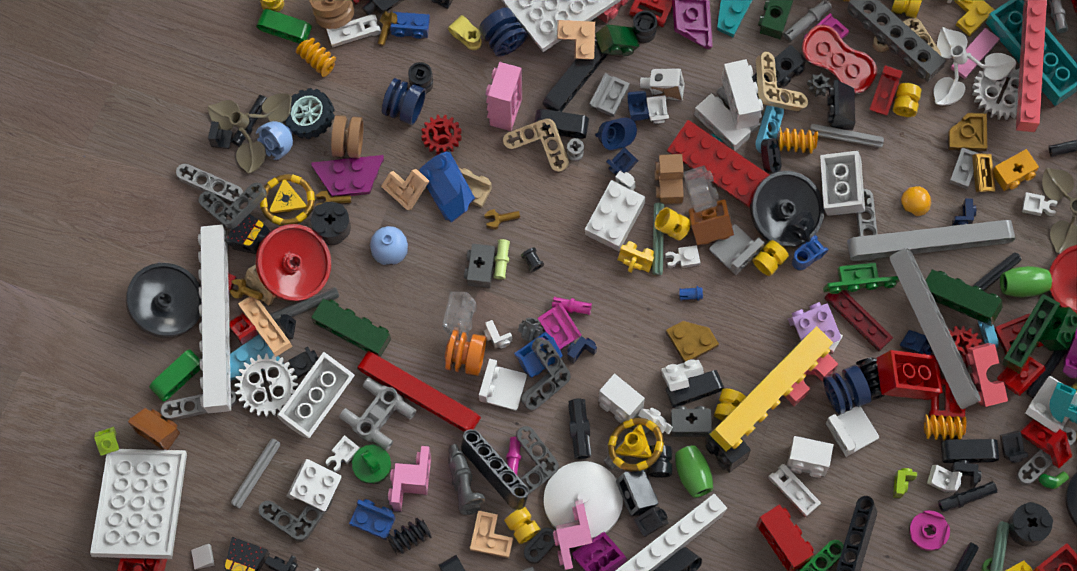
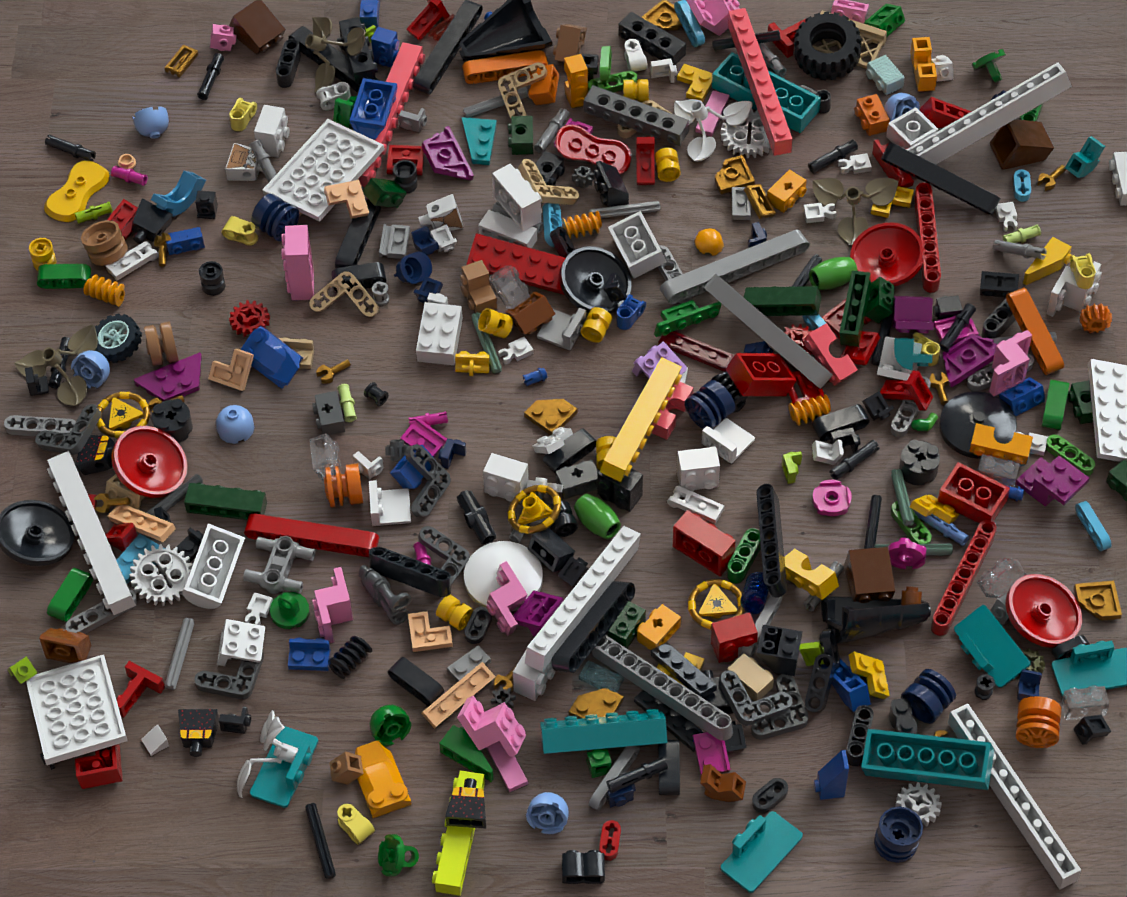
camera: 20 degrees left, 15 degrees down
(203, 496) = (139, 682): none -> red bracket
(405, 102) = (199, 300): dark blue wheel -> none

